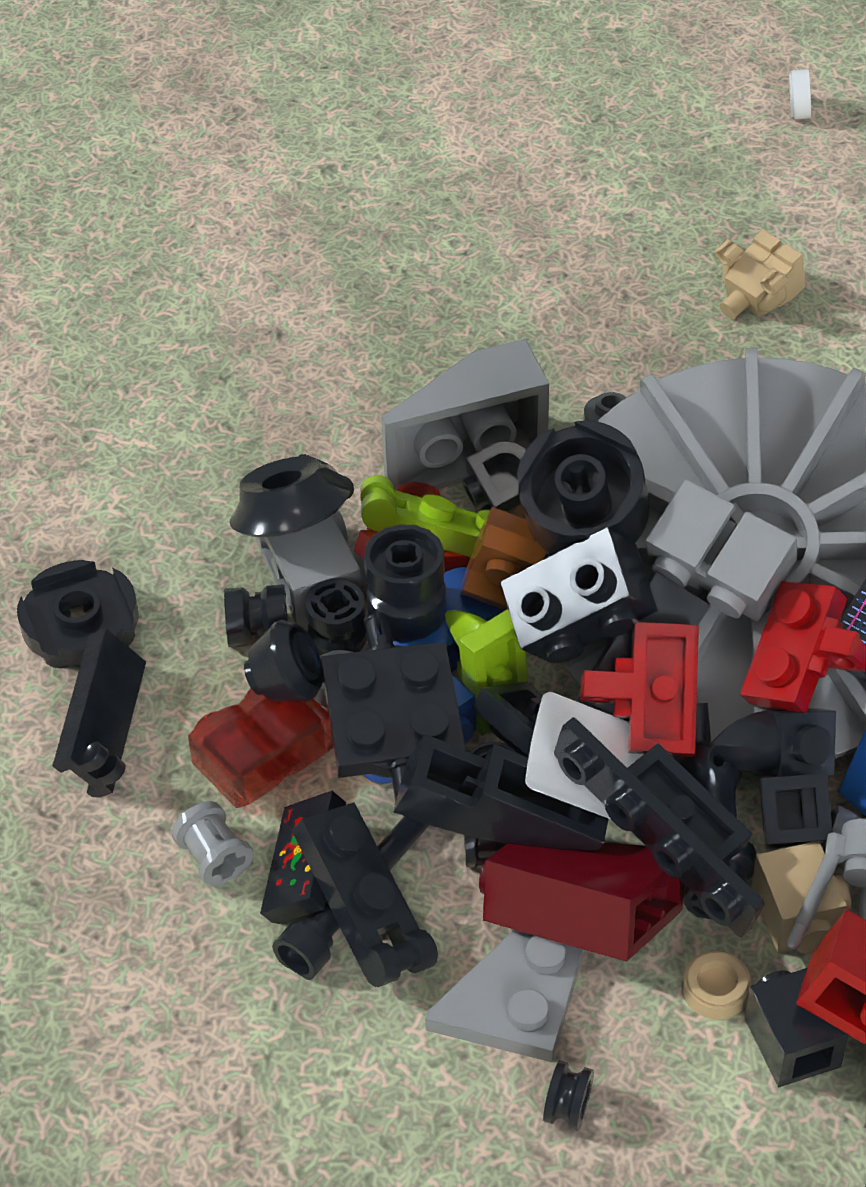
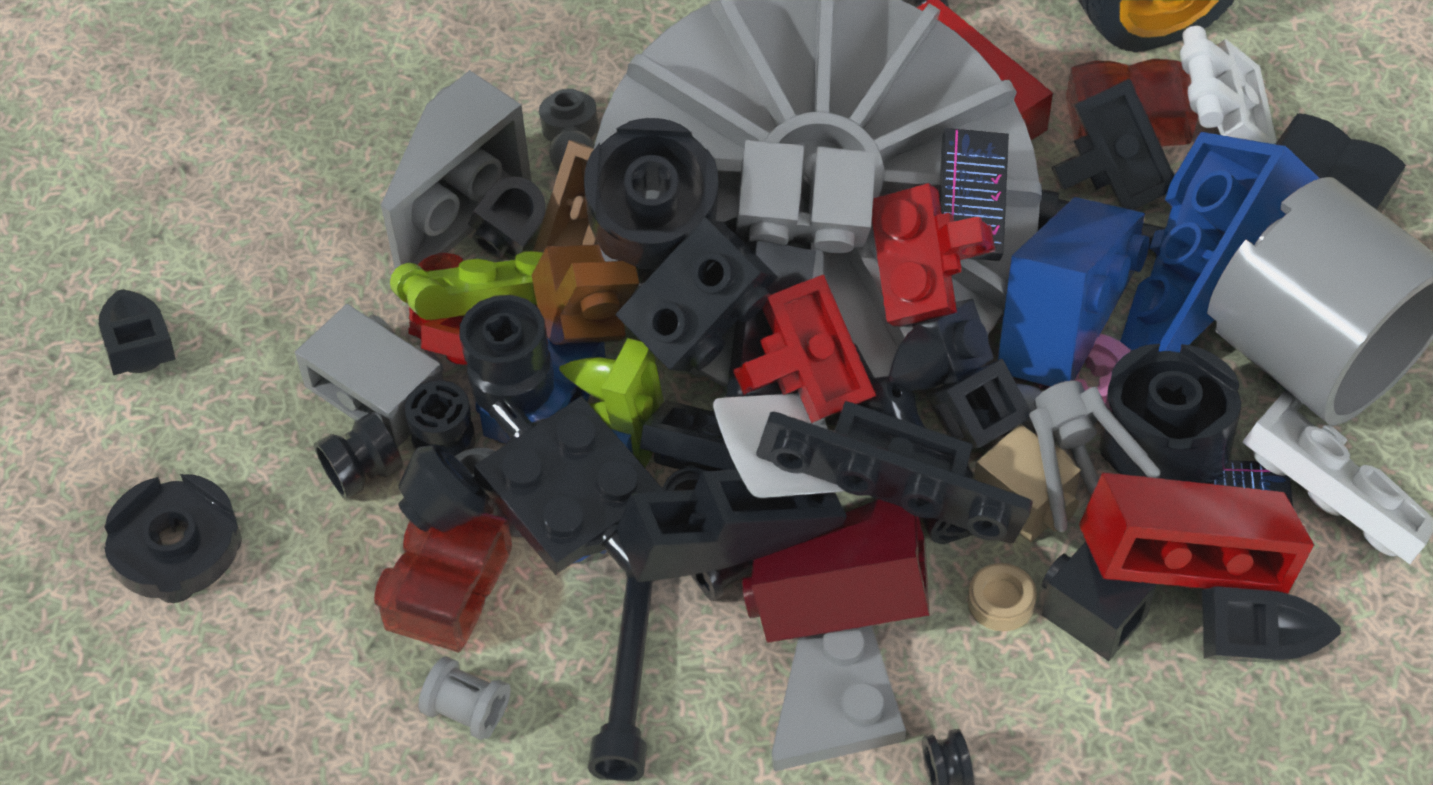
camera: 30 degrees left, 5 degrees up
(100, 713) = (267, 626): black hinge -> none
(151, 445) = (134, 333): none -> black plate
(289, 496) = (334, 325): black piece -> none
(291, 883) = (561, 668): black tile -> none
(363, 895) = (649, 675): black plate -> none

